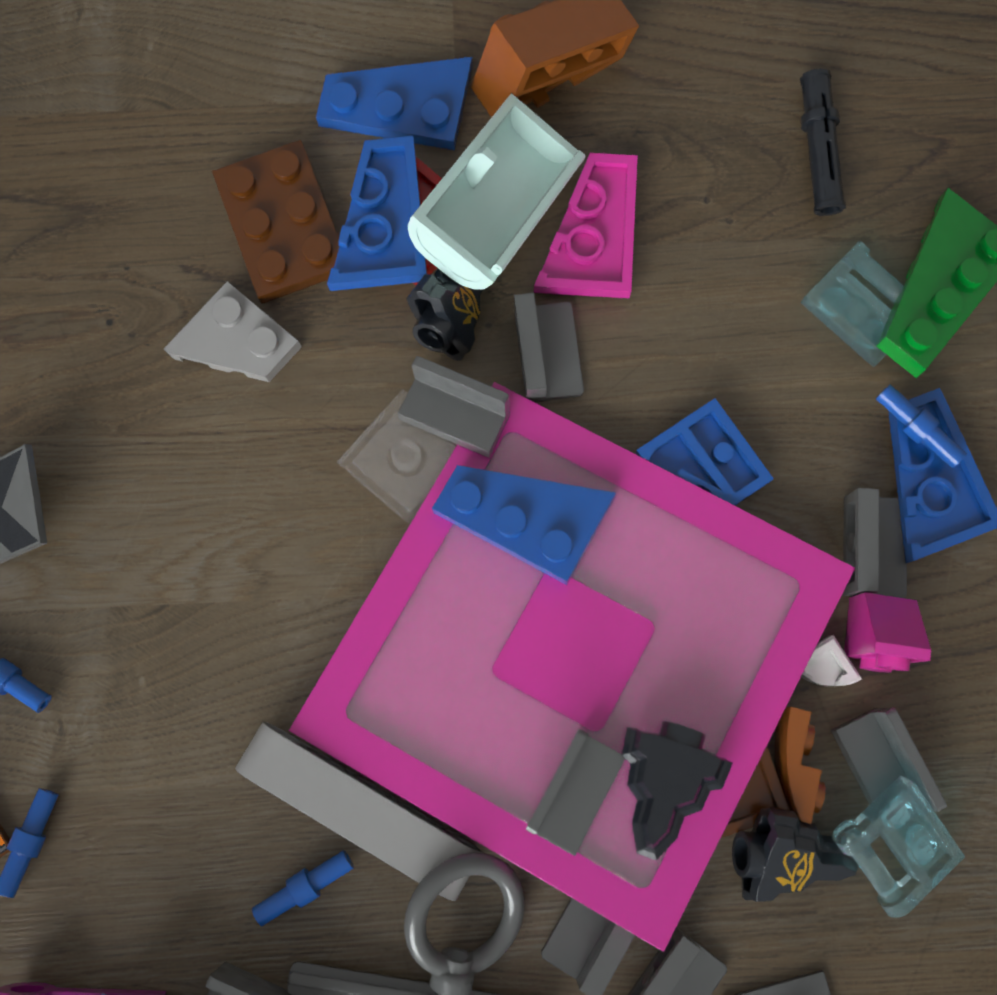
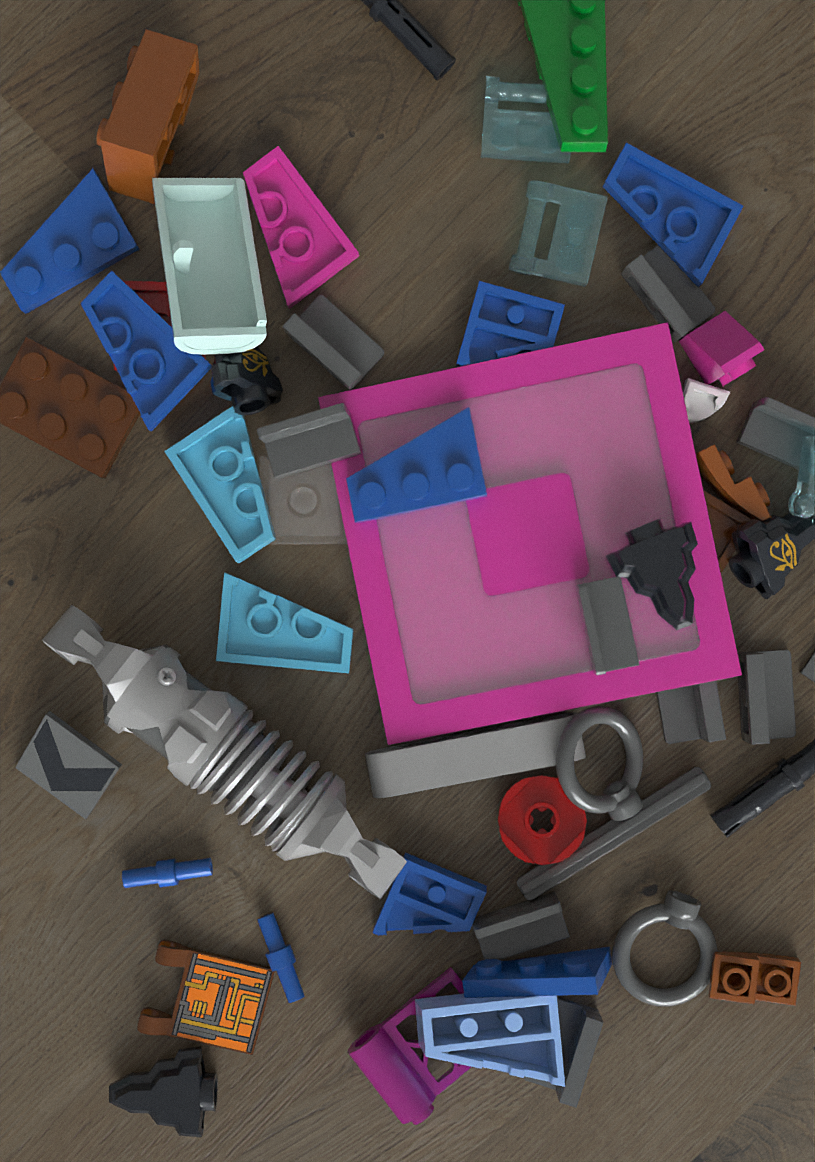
camera: 45 degrees left, 10 degrees up
(139, 600) = (221, 750): none -> light grey piece
(201, 909) = (429, 899): none -> blue wing
(234, 336) = (110, 518): light grey wing -> none
(285, 550) = (276, 632): none -> medium azure wing
(302, 888) = (482, 832): blue bar -> none
(342, 949) = (516, 821): none -> red plate
(353, 387) = (226, 482): none -> medium azure wing
(827, 429) = (572, 238): none -> clear light blue plate
(921, 426) = (635, 184): blue bar -> none

